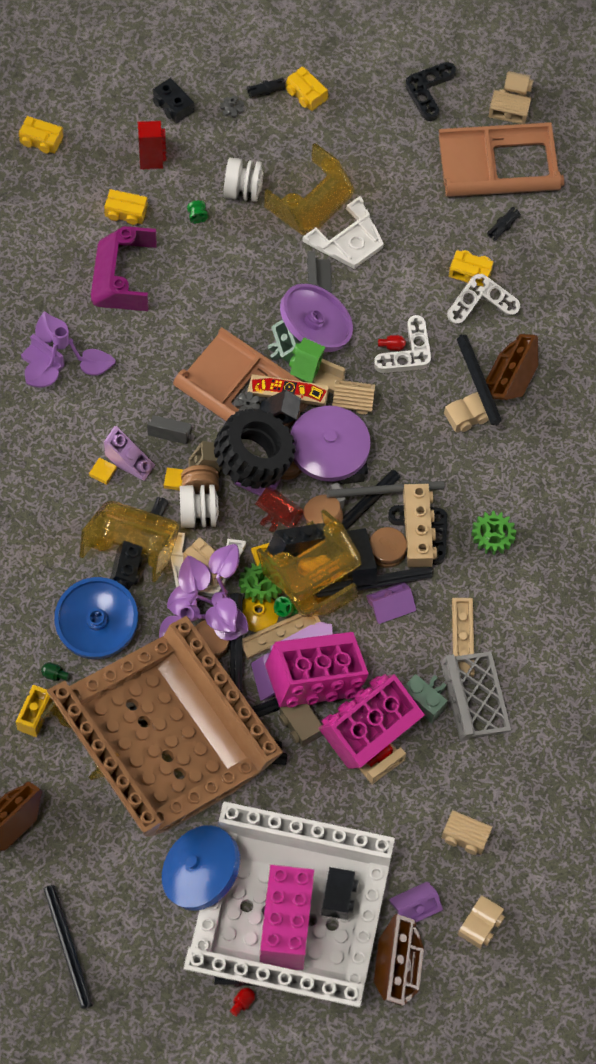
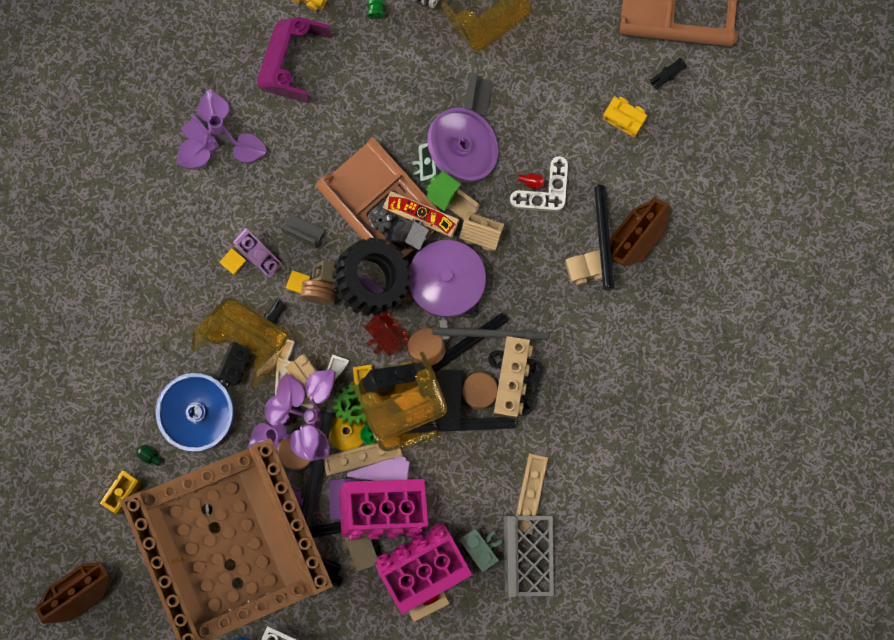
camera: 20 degrees right, 15 degrees up
(198, 506) = (309, 318): white wheel -> none
(354, 243) = (519, 68): white wing -> none
(392, 602) = (471, 446): medium lavender panel -> none
(484, 292) = (629, 145): white beam -> none
(493, 528) = (589, 391): bright green gear -> none

